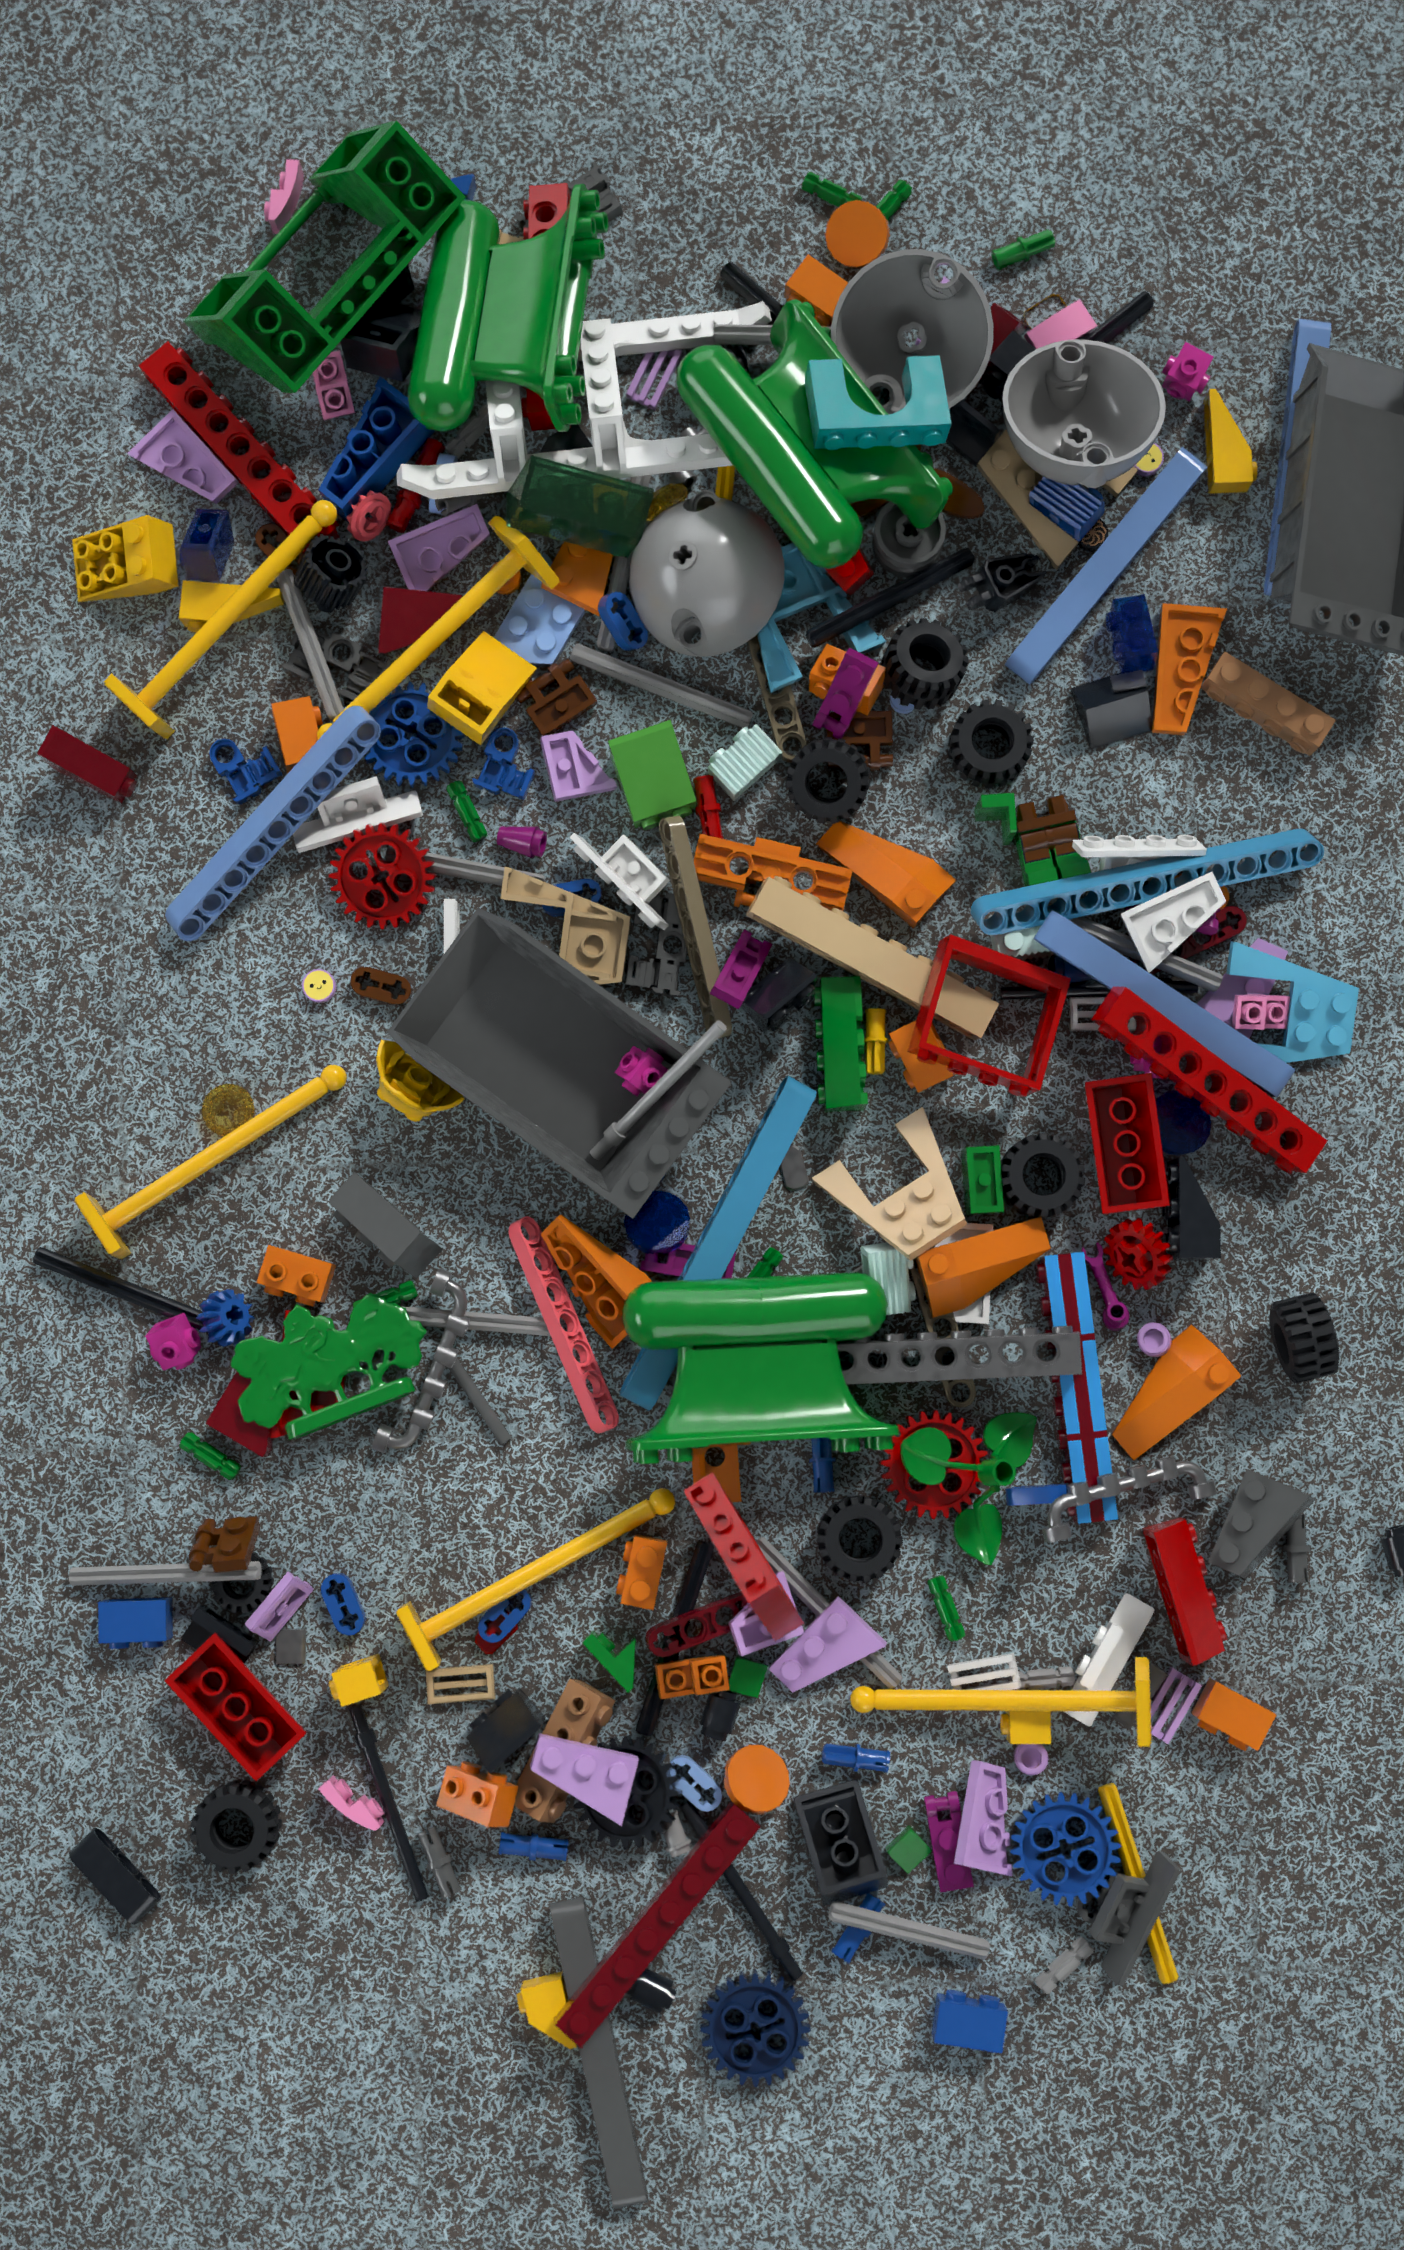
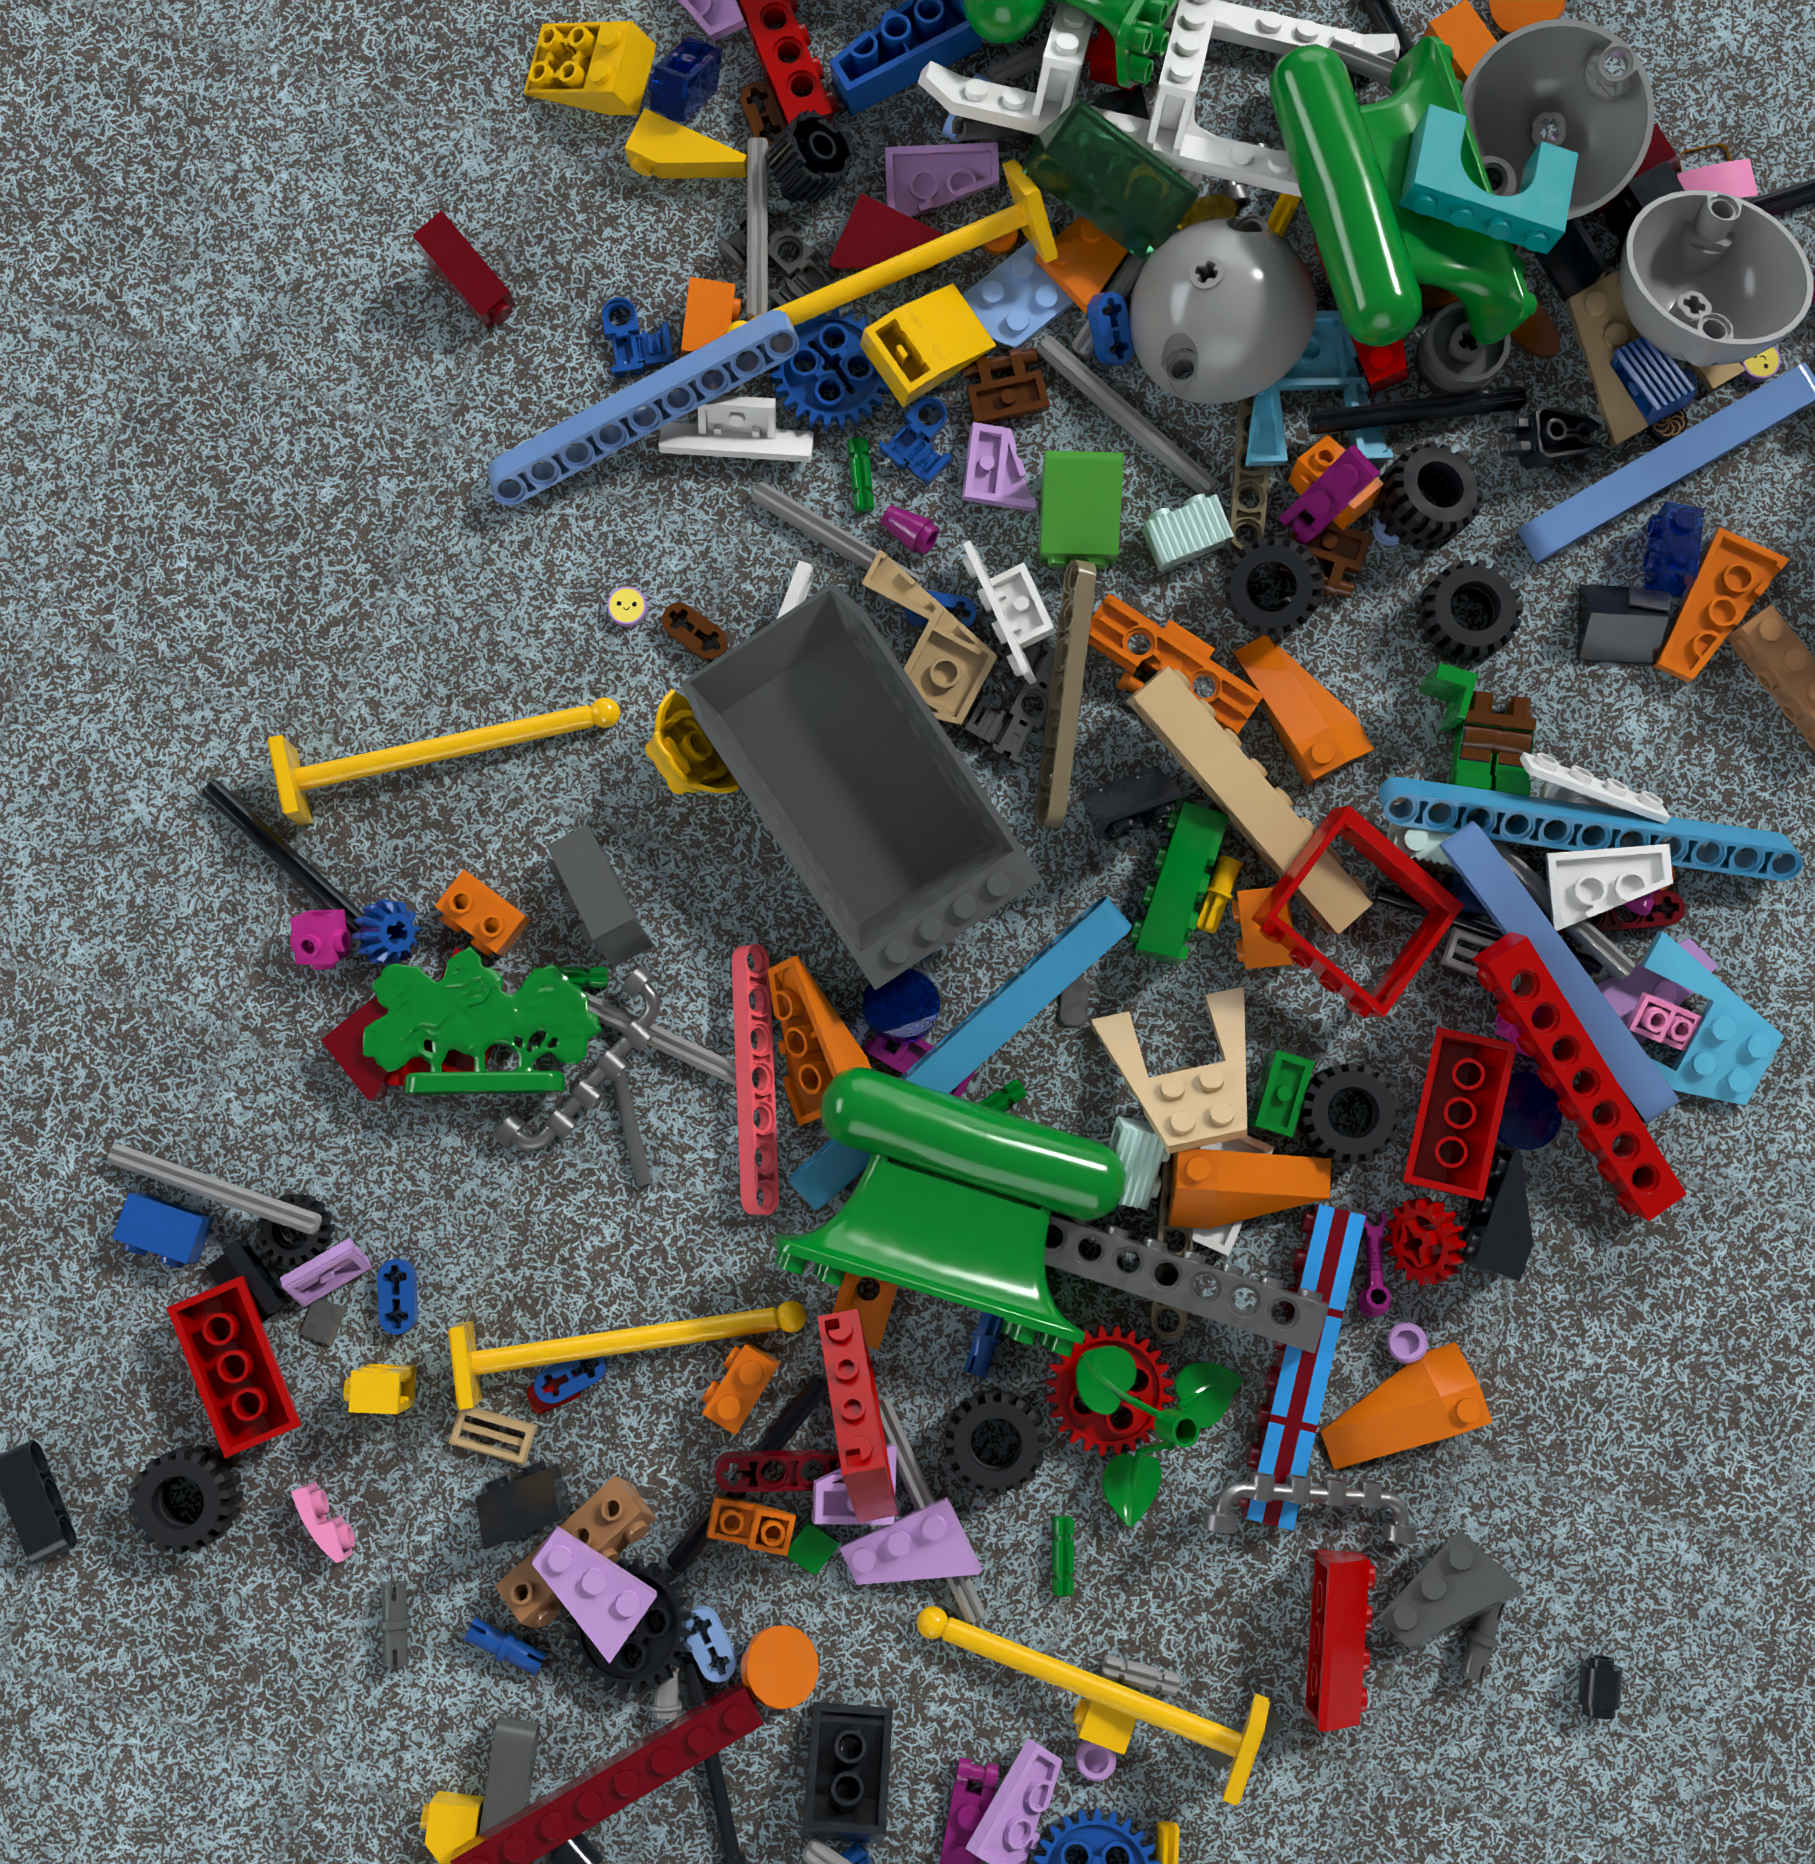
camera: 20 degrees right, 0 degrees up
(210, 1456) = (313, 1078): green axle -> none
(214, 1104) = (464, 694): clear yellow gear -> none
(233, 1541) = (301, 1182): reddish brown plate -> none
(322, 515) = (824, 90): yellow piece -> none
(357, 890) = (775, 504): red gear -> none
(366, 1740) = (365, 1456): black bar -> none
(369, 528) = (889, 110): coral gear -> none
(409, 500) = (927, 109): red pin -> none
(477, 1795) = (463, 1566): orange brick -> none
(618, 1131) = (895, 887): light grey bar -> none
(619, 1665) = (674, 1480): green slope -> none
(640, 1070) = (948, 834): dark pink brick -> none
(642, 398) = (1251, 87): lavender tile -> none
(707, 807) = (1128, 567): red pin -> none
(720, 1715) = (766, 1579): black brick -> none
(741, 969) = (1098, 759): magenta plate -> none
(856, 1757) = (900, 1684): blue axle -> none
(908, 1849) = (919, 1809): green slope -> none
(1012, 1671) = (1111, 1656): white tile -> none
(1022, 249) = (1705, 81): green axle -> none
(1034, 1494) = (1210, 1466): blue beam -> none
(1111, 1651) = (1231, 1673): white bracket -> none
(1182, 1709) = (1284, 1771): lavender tile -> none
(1233, 1714) = (1342, 1800): orange brick -> none
(1304, 1337) = (1580, 1406): black tyre -> none

